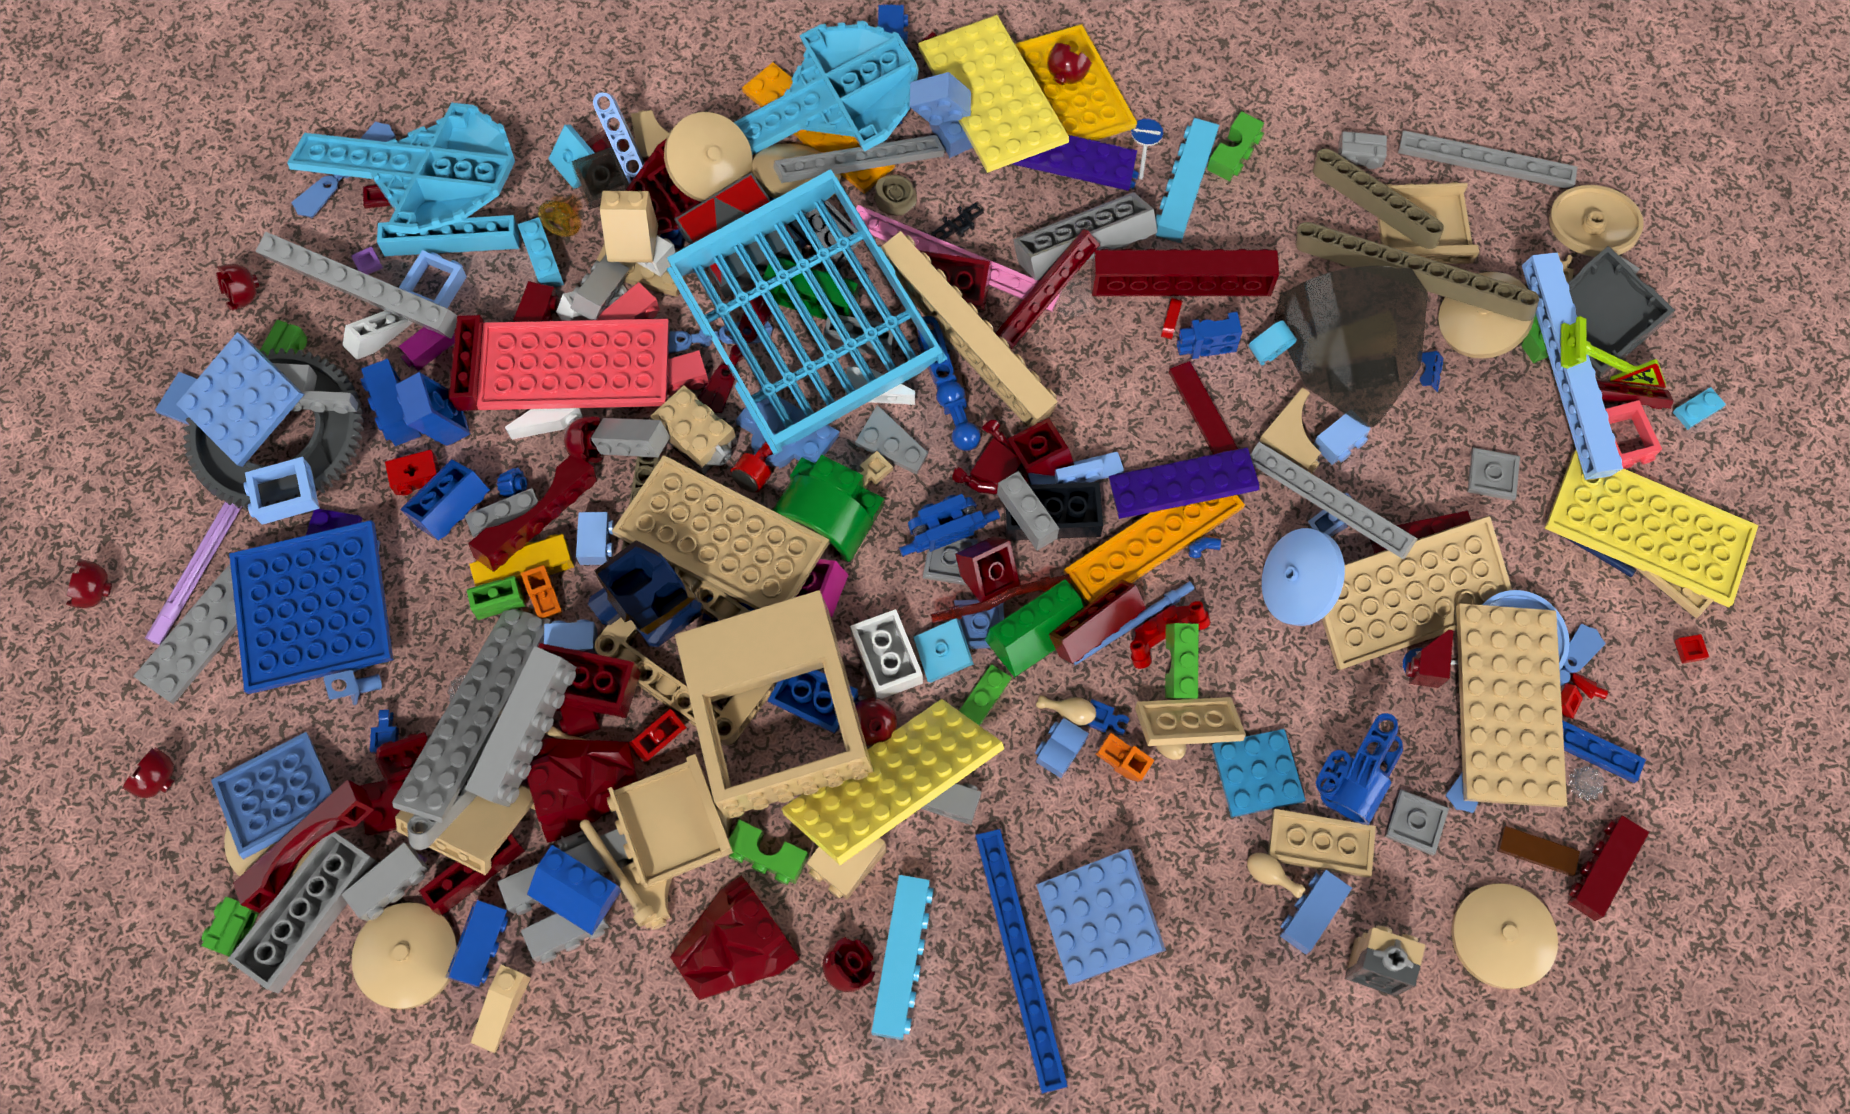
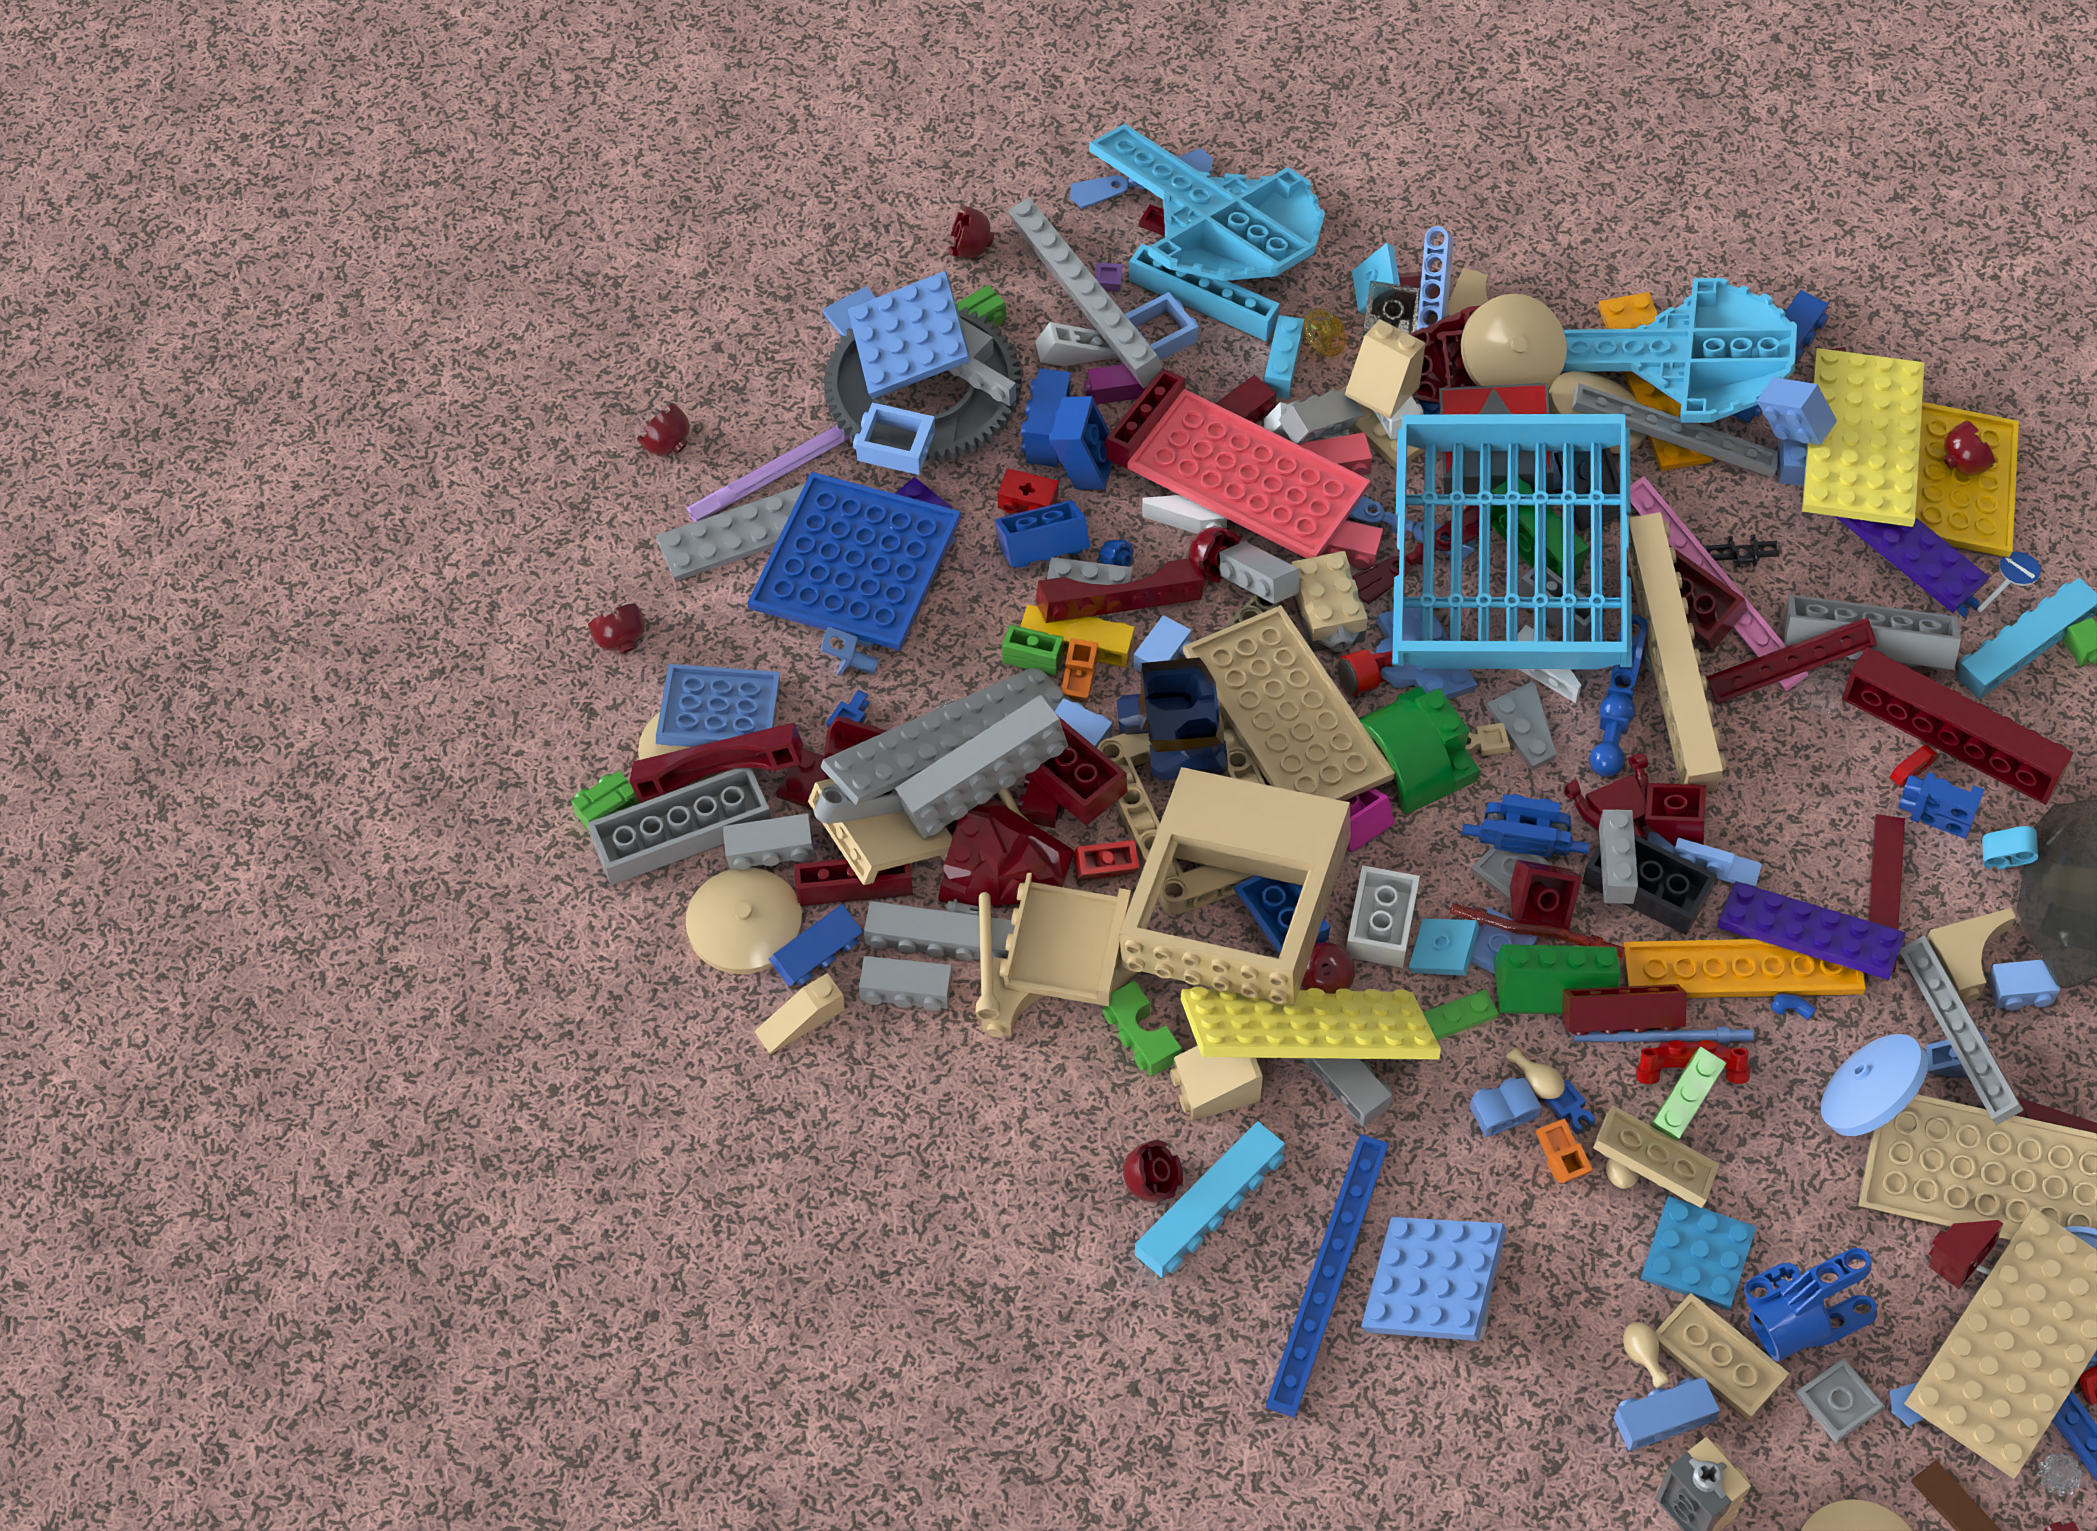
camera: 35 degrees right, 10 degrees down
(572, 890) = (936, 946): blue slope -> none
(732, 944) = (1054, 1092): dark red wedge -> none
(890, 192) = (1692, 488): dark tan hat -> none

